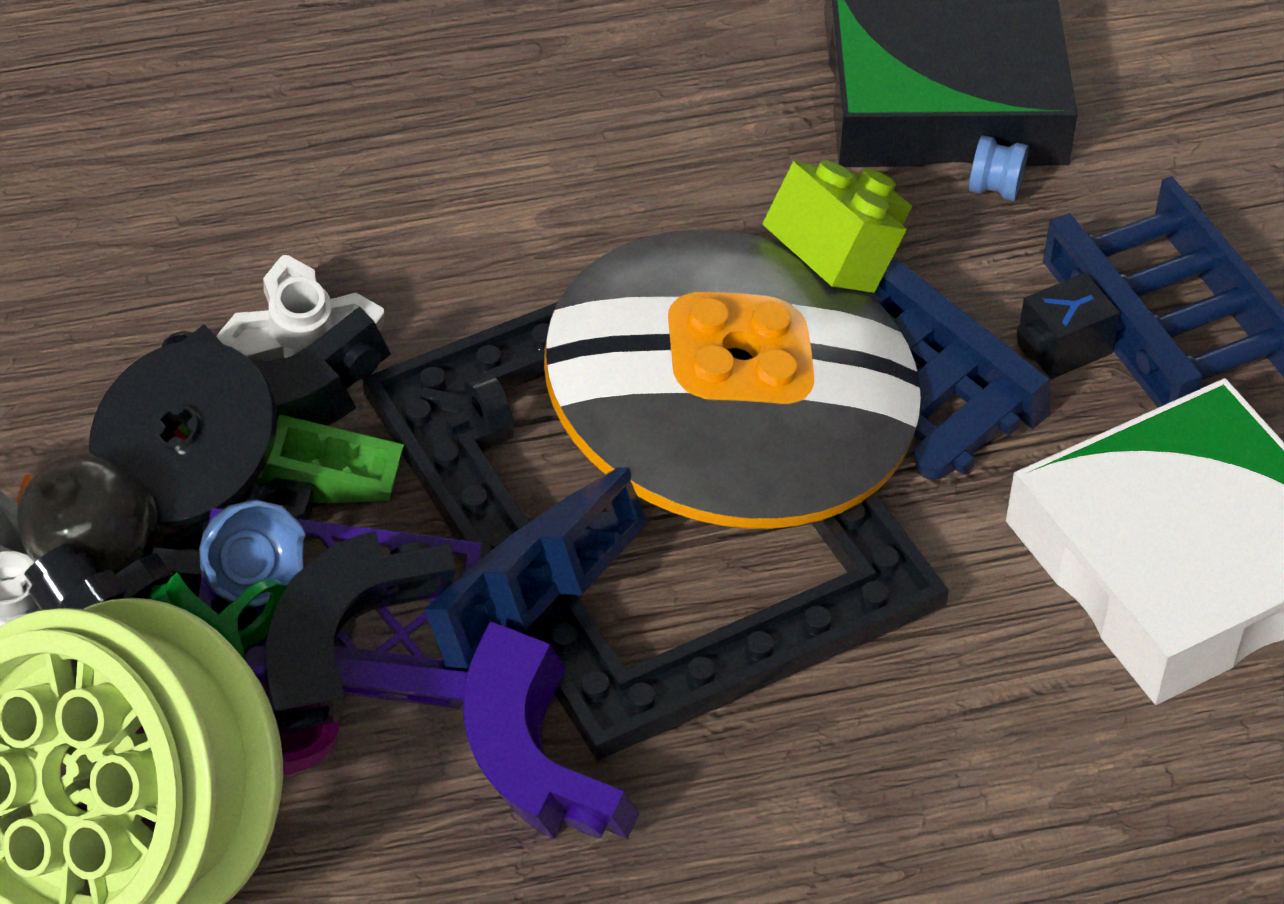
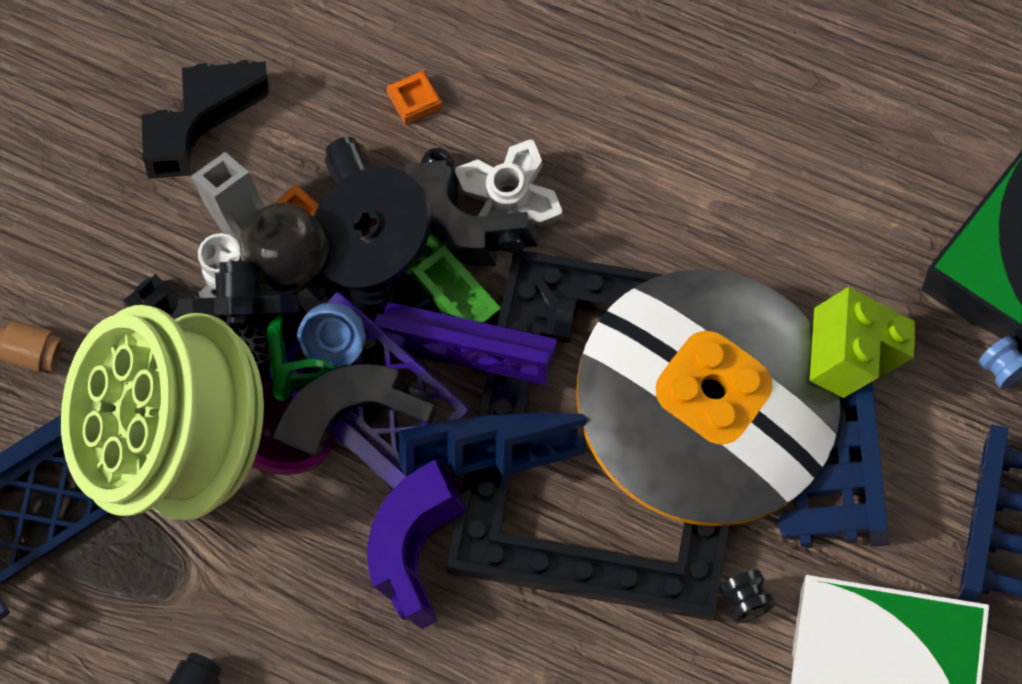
camera: 40 degrees right, 15 degrees up
(67, 410) = (345, 158): none -> black brick
(91, 309) = (414, 97): none -> orange tile
(424, 486) = (469, 343): none -> dark purple fence
(963, 550) = (747, 596): none -> black wheel
(1067, 326) = (944, 498): black brick -> none

